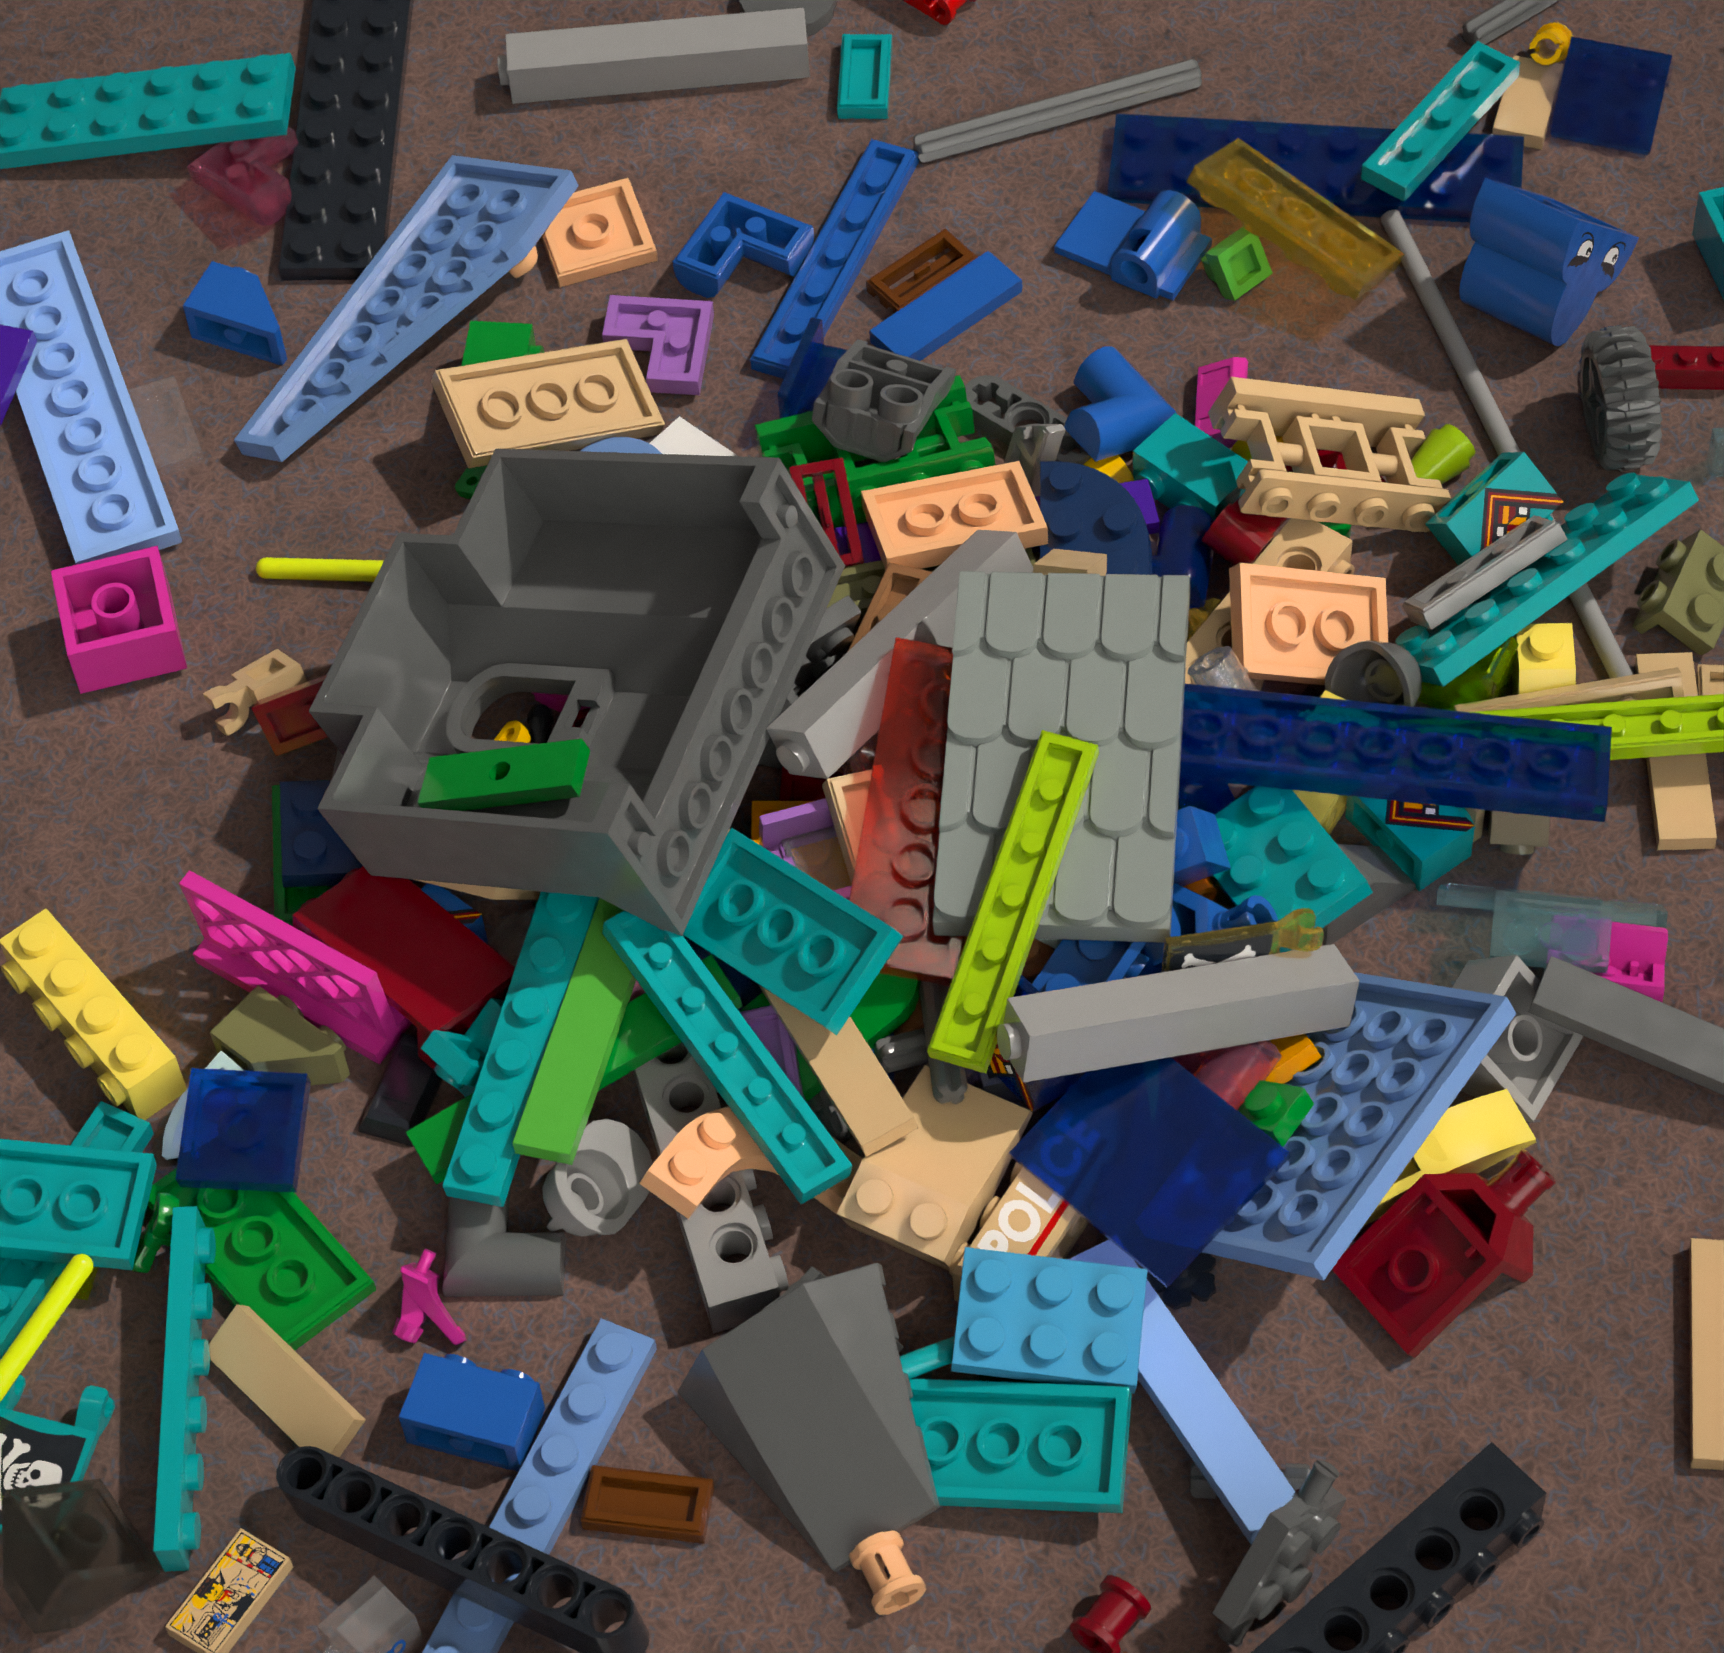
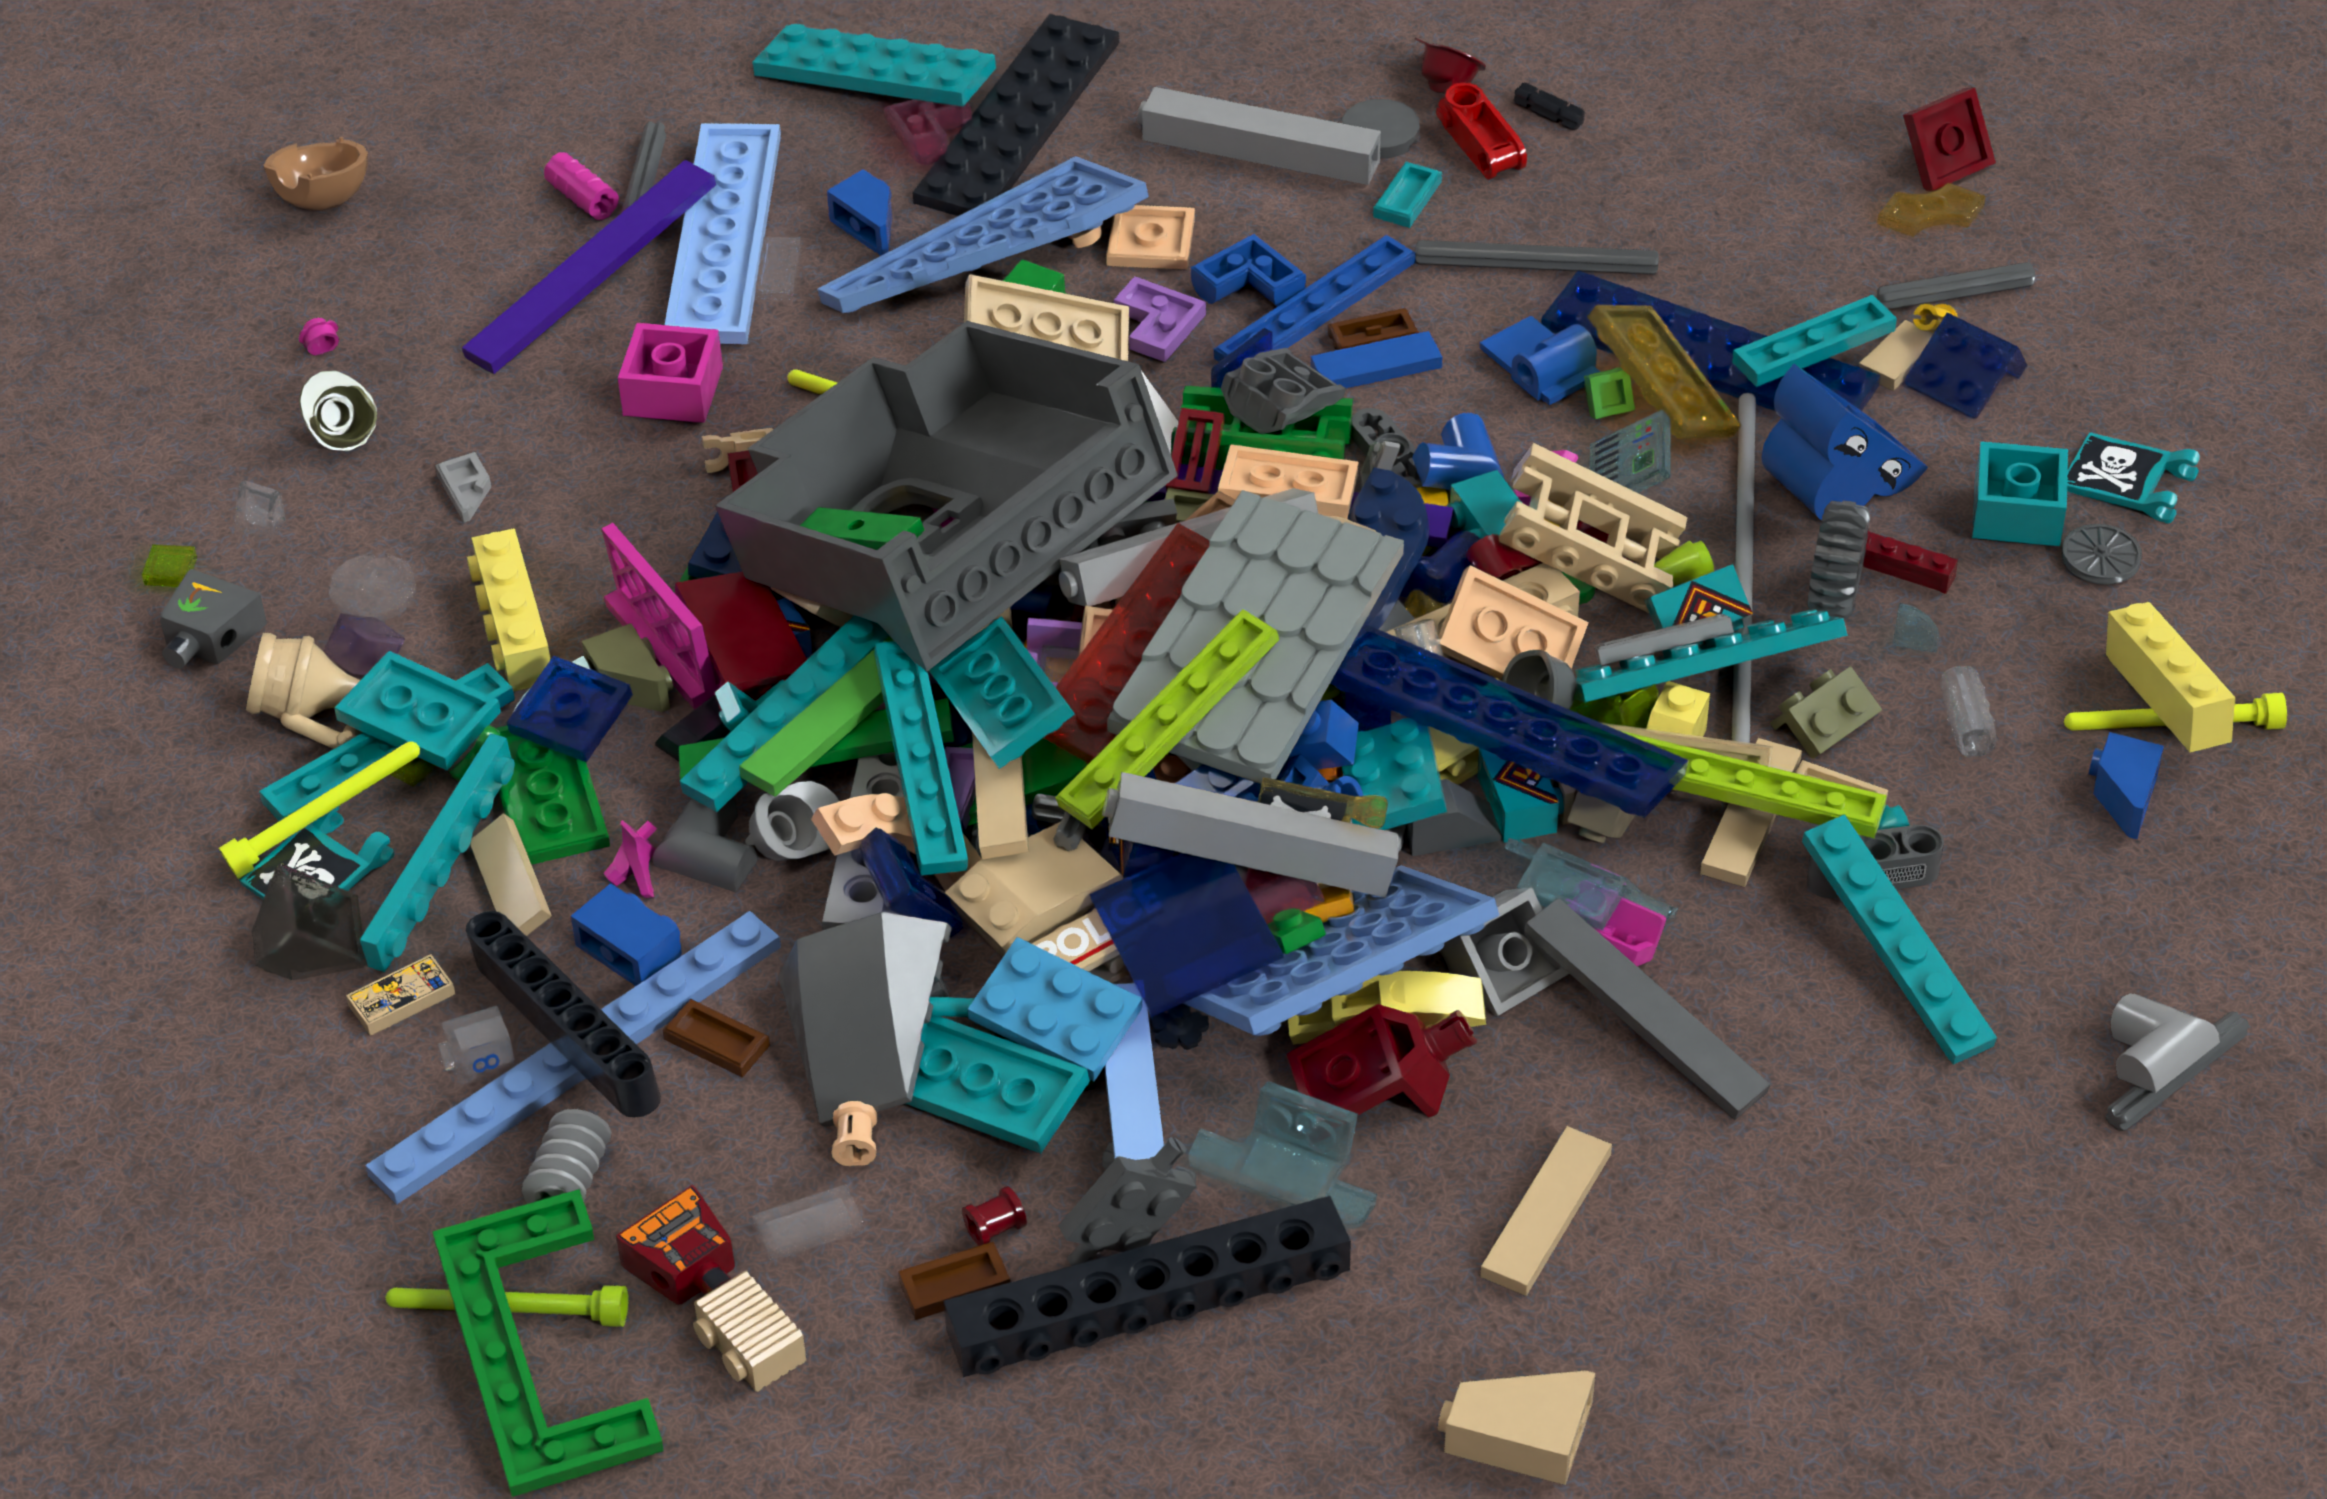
camera: 20 degrees right, 10 degrees down
(782, 1225) = (901, 882): none -> clear blue brick
(1314, 339) = (1635, 454): none -> clear light blue tile
(1402, 1401) = (1290, 1154): none -> clear light blue plate

